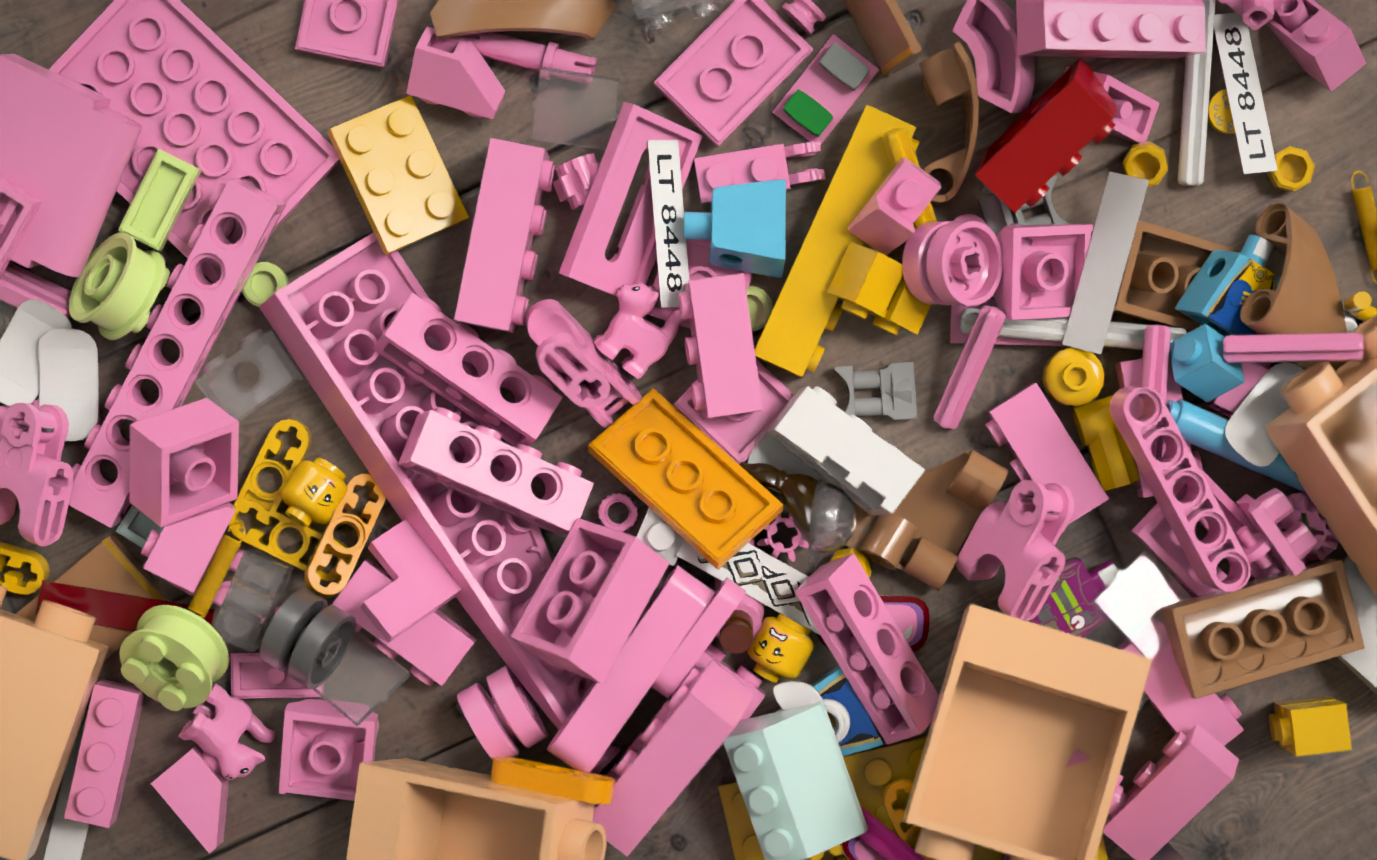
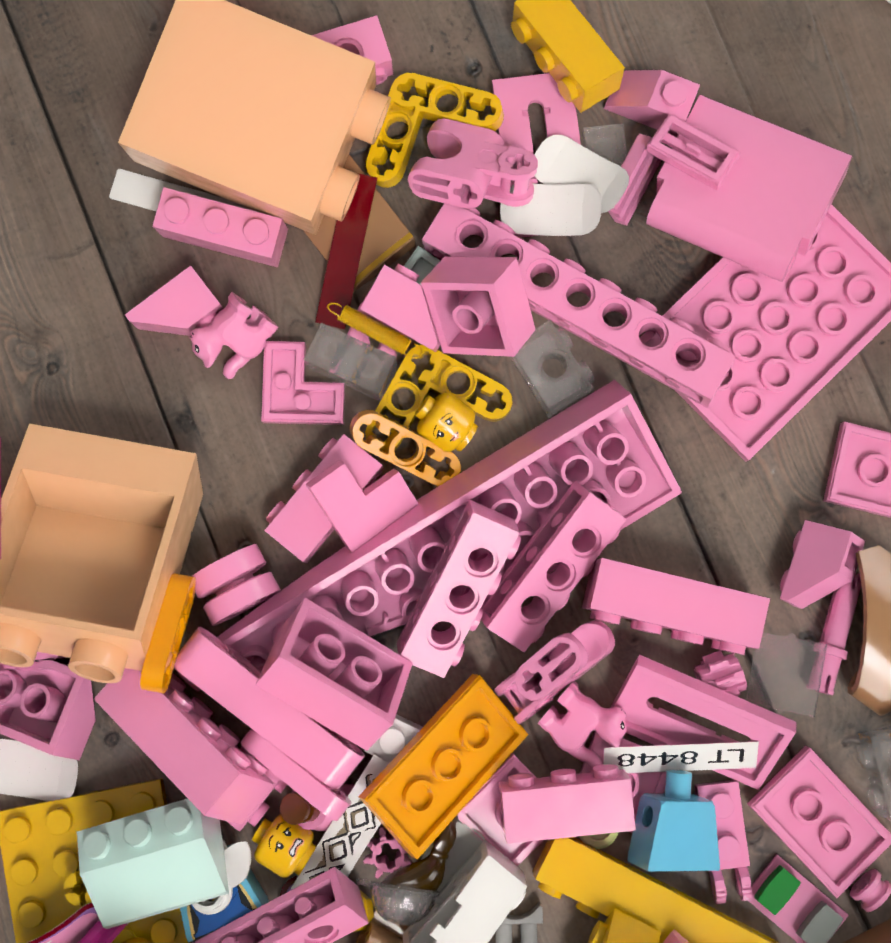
camera: 85 degrees right, 5 degrees down
(118, 287) = (637, 255): yellowish green wheel -> none
(159, 200) = (713, 295): yellowish green tile -> none
(174, 657) = (303, 290): yellowish green wheel -> none
(264, 282) = (635, 382): yellowish green tile -> none
(307, 638) = (313, 410): flat silver wheel -> none
(324, 750) = (214, 423): bright pink slope -> none
(362, 680) = (277, 452): clear piece -> none
(397, 175) = (729, 509): yellow plate -> none
(623, 498) = (417, 710): bright pink axle -> none

